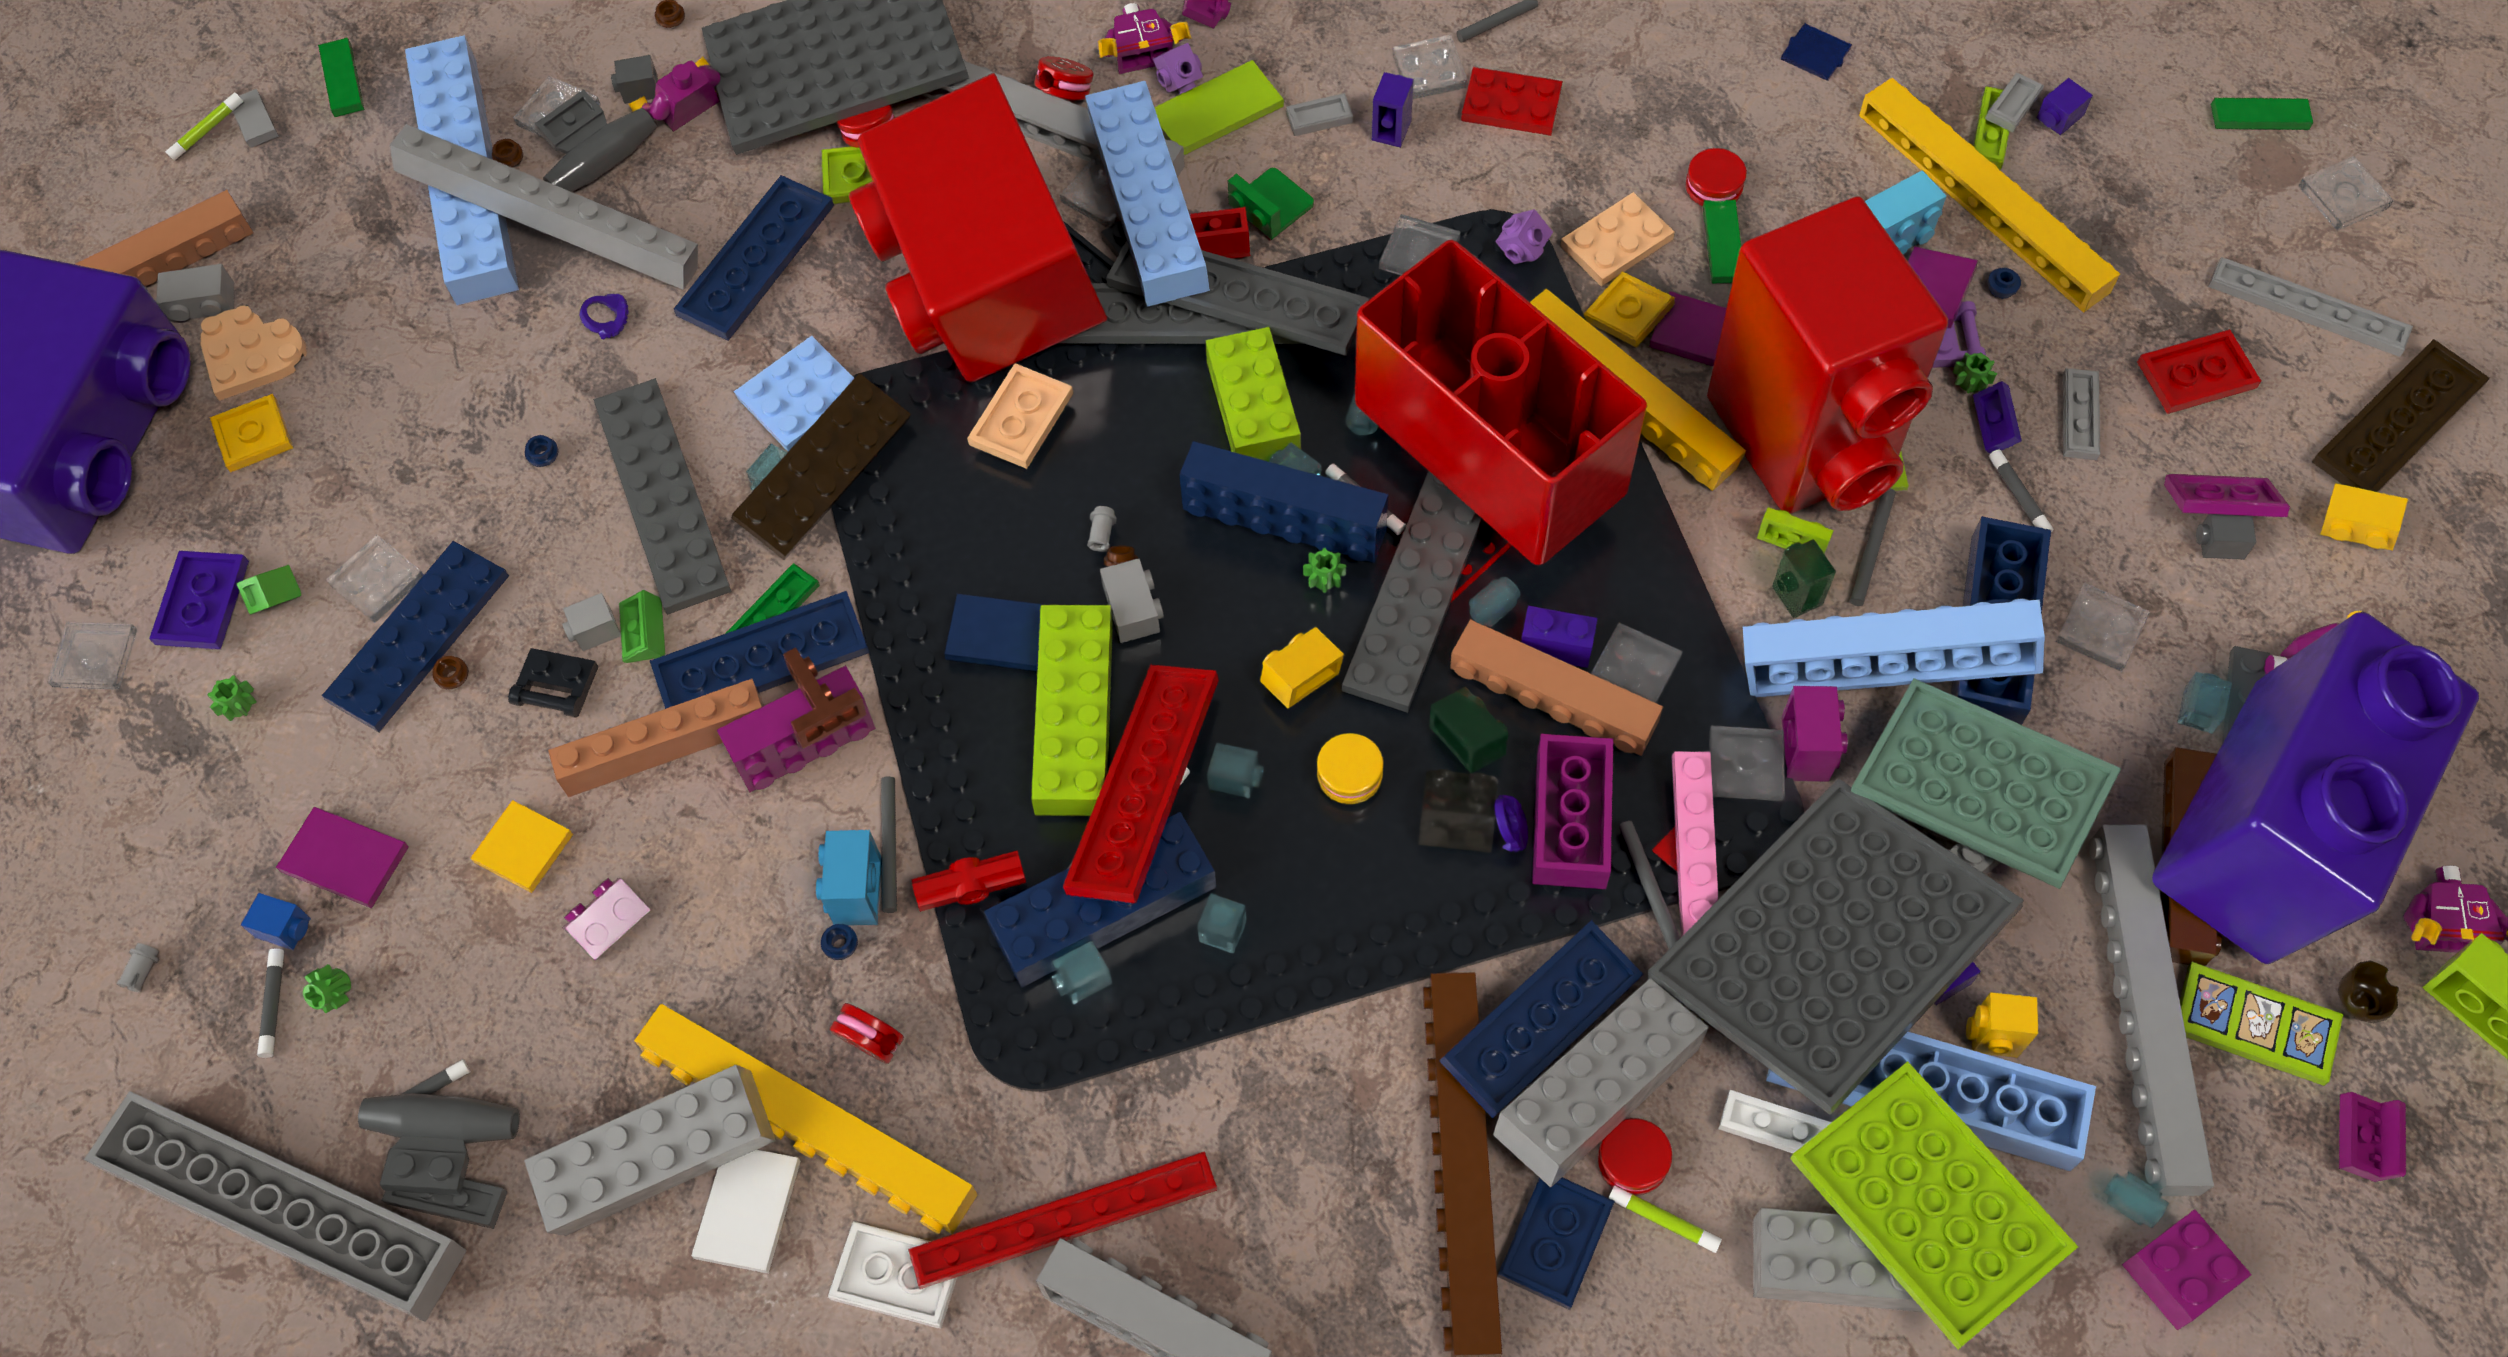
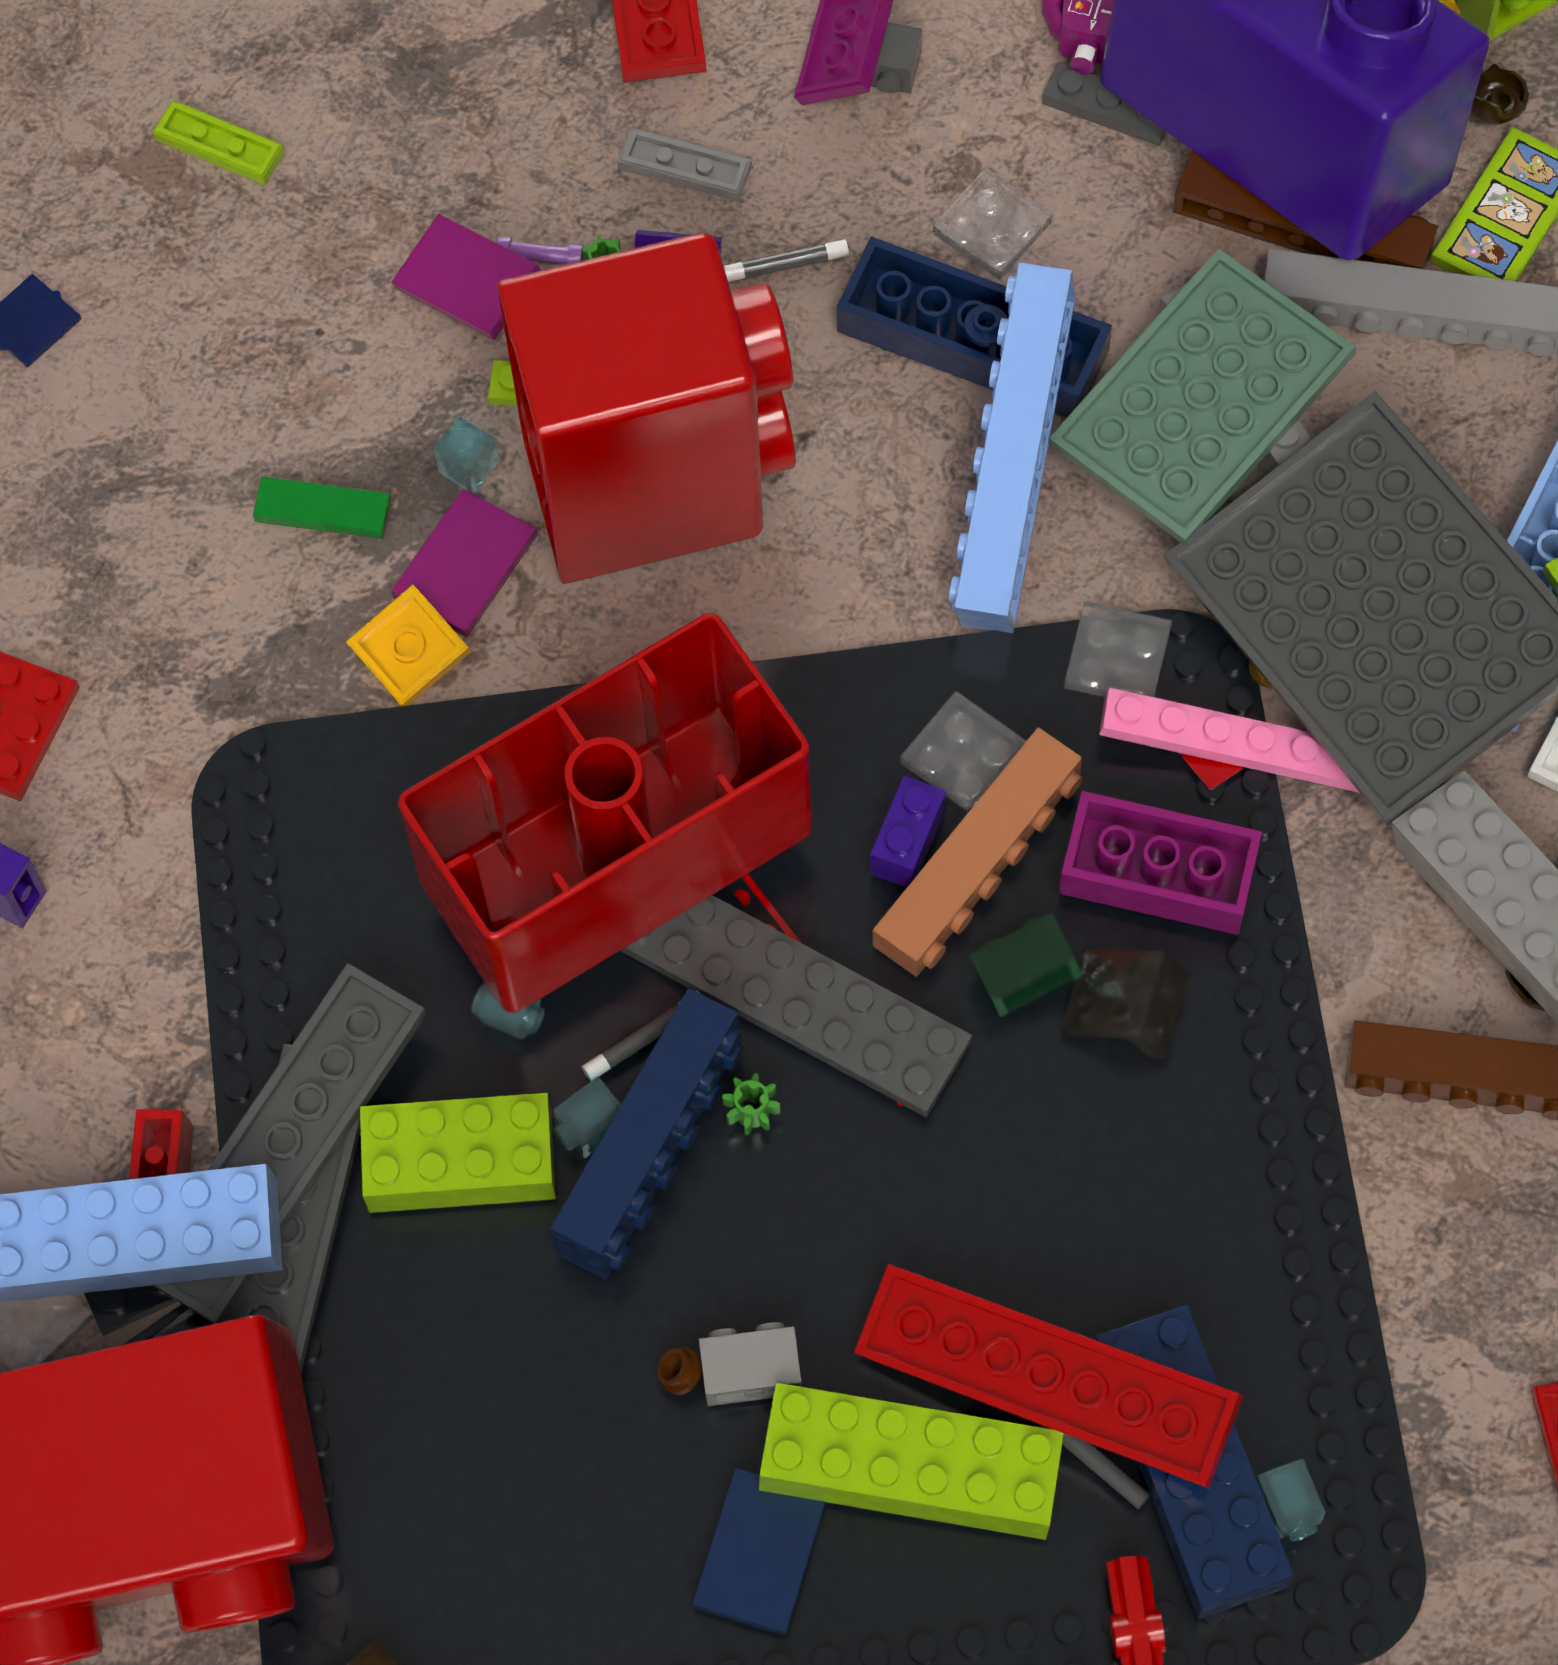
camera: 80 degrees left, 5 degrees up
(1020, 415) = (412, 1481): light nougat plate -> none
(1102, 522) = (623, 1391): light grey pin -> none
(1222, 923) = (1247, 1312): clear light blue brick -> none
(1234, 770) = (1031, 1266): clear light blue brick -> none
(1269, 201) = (107, 1081): green bracket -> none
(1301, 667) = (897, 1155): yellow brick -> none
(1350, 768) = (1050, 1122): yellow head -> none
(1412, 242) = (250, 892): clear plate -> none
(1494, 601) = (840, 900): clear light blue brick -> none
(1511, 823) = (1158, 939): dark purple piece -> none
(1524, 236) = (275, 749): medium lavender brick -> none
(1541, 1018) = (1423, 955): dark blue plate -> none
(1617, 239) = (284, 638): light nougat plate -> none
(1649, 883) = (1266, 799): dark grey bar -> none
(1668, 418) = (547, 668): yellow brick -> none
(1715, 176) = (219, 492): red head -> none
(1784, 530) = (799, 524): lime bracket -> none
(1803, 578) = (876, 529): clear green brick -> none
(1813, 733) = (1093, 567): magenta brick -> none
(1872, 548) = (848, 454): dark grey bar -> none
(1909, 210) = (365, 297): medium azure brick -> none
(1989, 195) = (327, 177): yellow brick -> none
(2000, 288) = (474, 204): dark blue plate -> none
(2003, 1024) = (1496, 461): yellow brick -> none
(2014, 102) = (194, 104): light grey tile -> none
(2064, 106) = (215, 50): dark purple brick -> none
(2204, 702) = (1112, 146): clear light blue brick -> none

